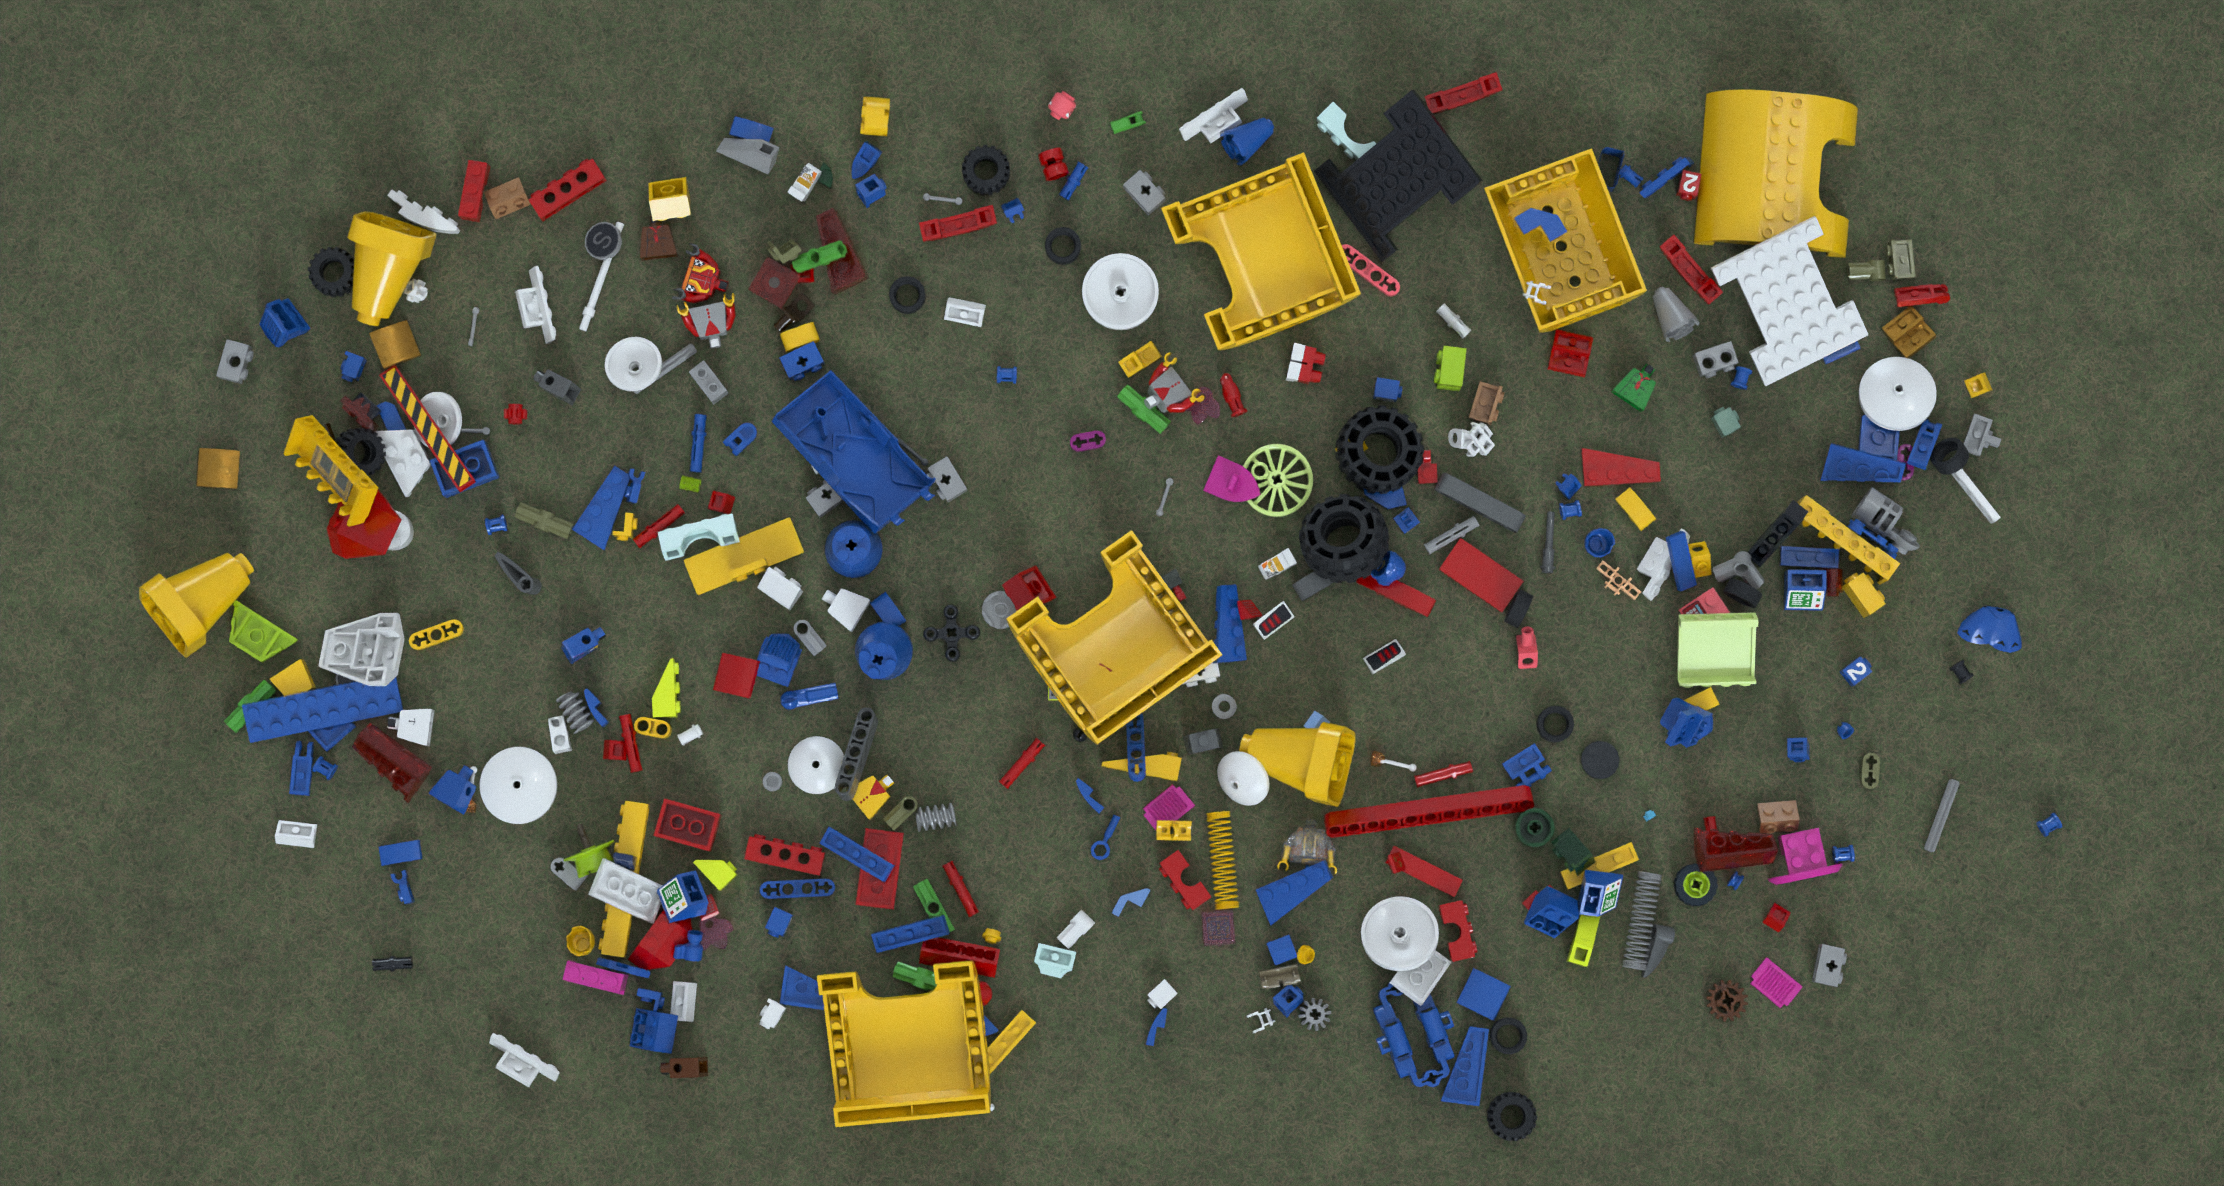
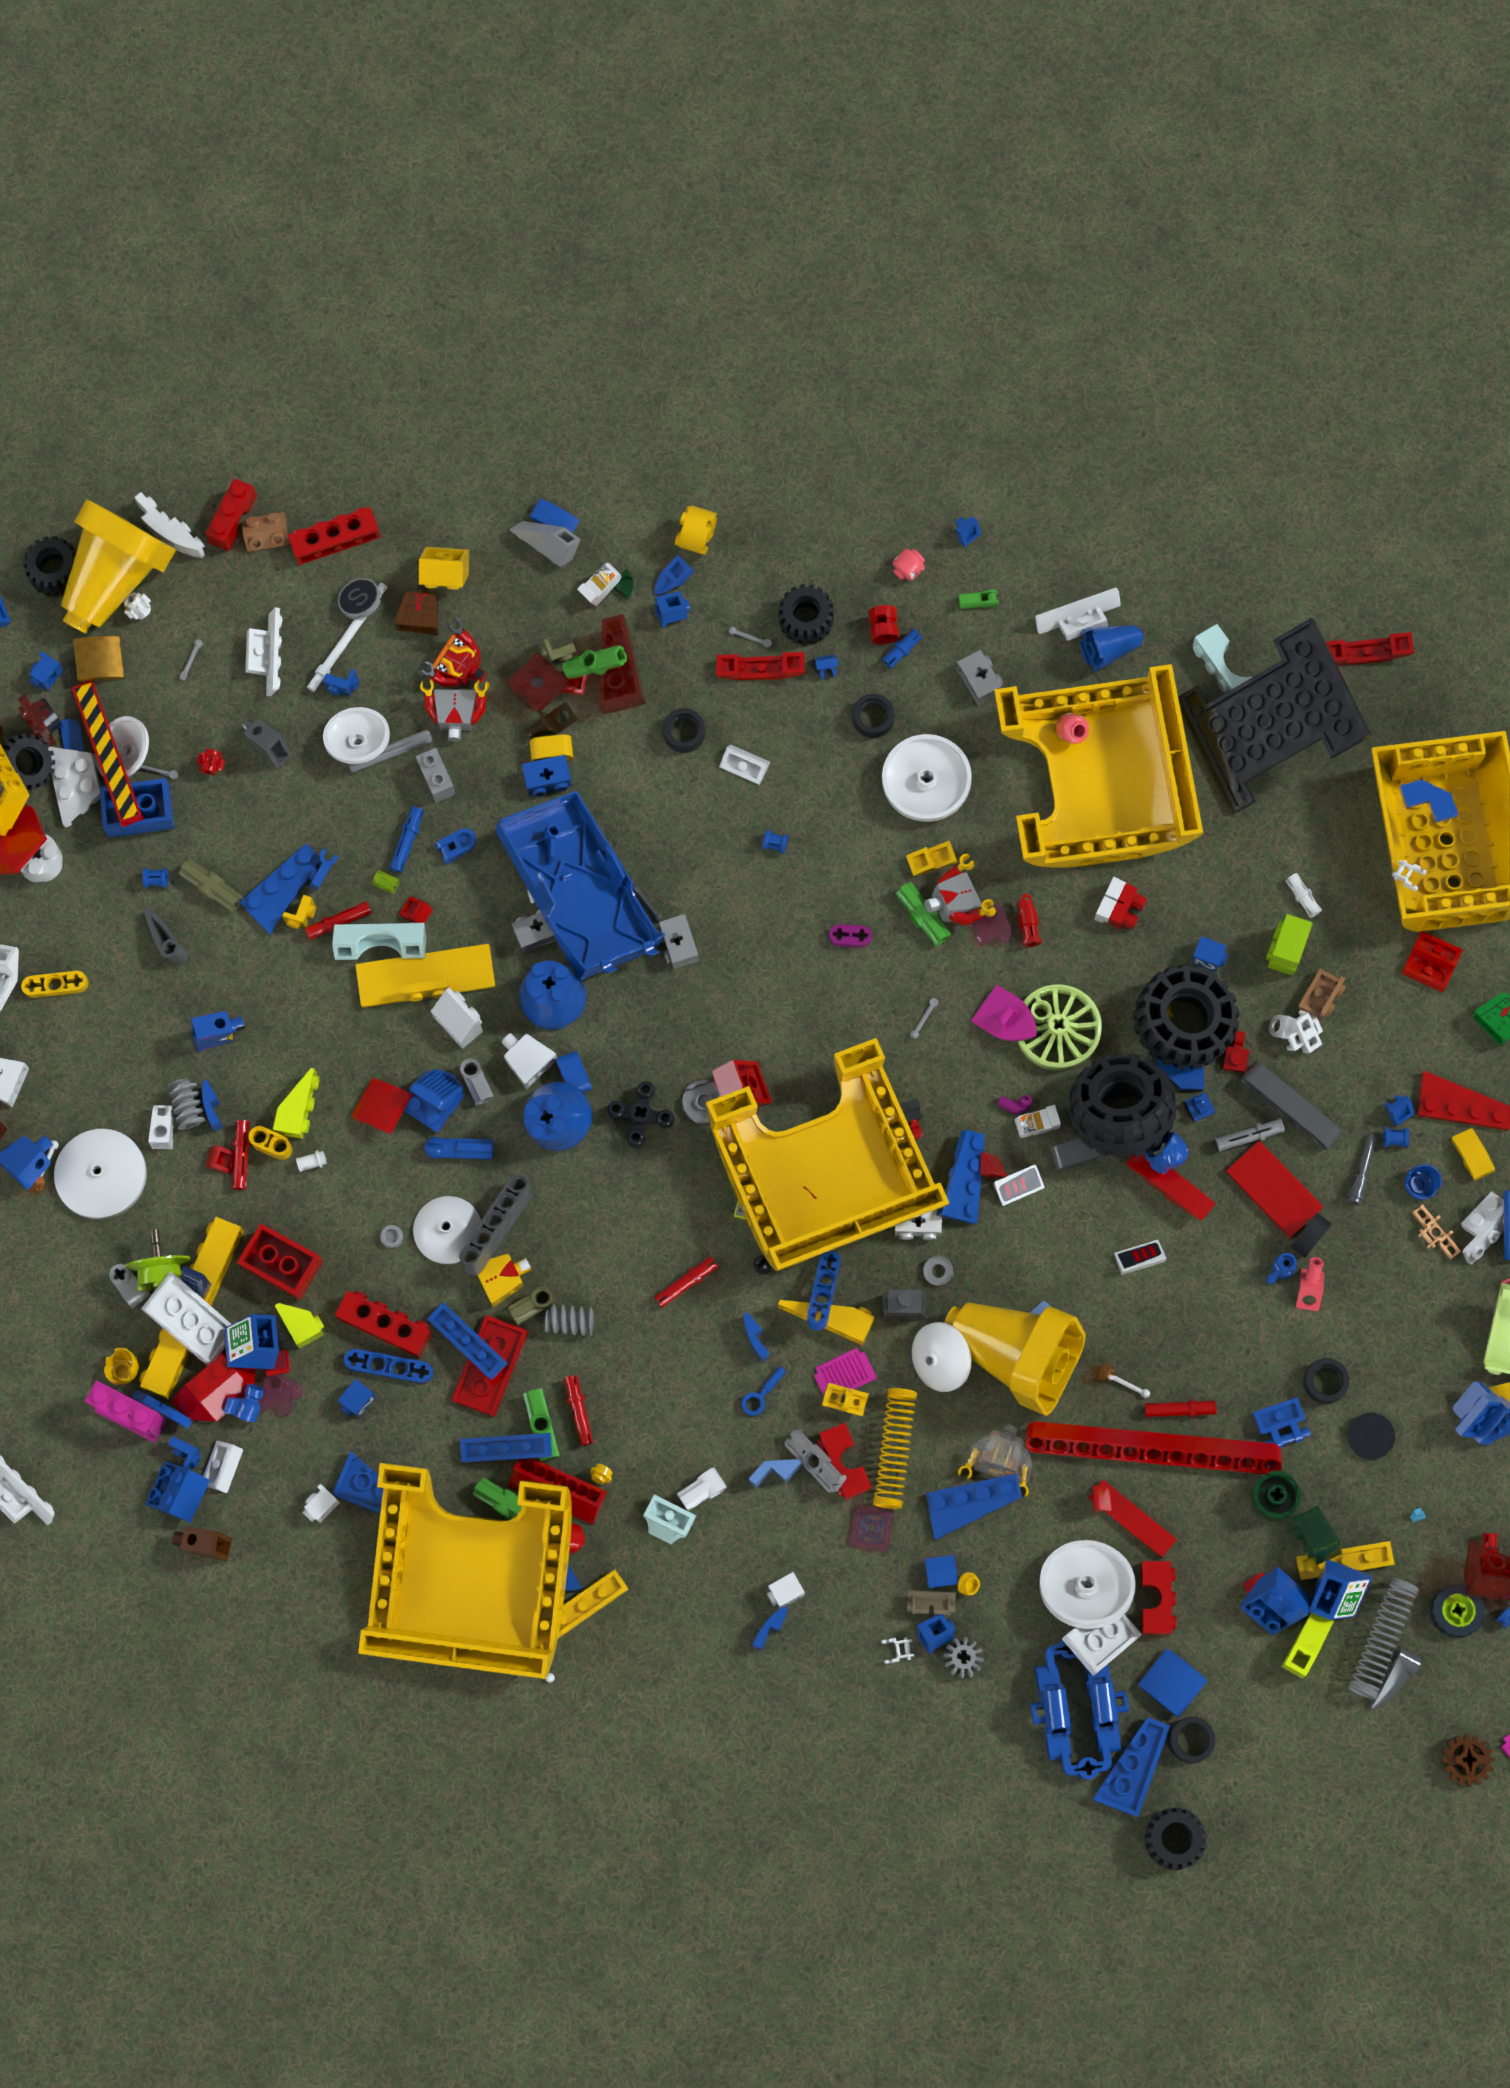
camera: 20 degrees right, 10 degrees down
(604, 323) = (338, 685): none -> blue bracket
(1104, 63) = (967, 530): none -> blue tile
(1150, 879) = (825, 1472): none -> light grey piece
(1232, 222) = (1072, 728): none -> coral head
(1257, 554) = (1016, 1107): none -> magenta arm
(1371, 267) = (1221, 816): coral beam -> none
(1501, 639) = (1282, 1268): none -> blue piece

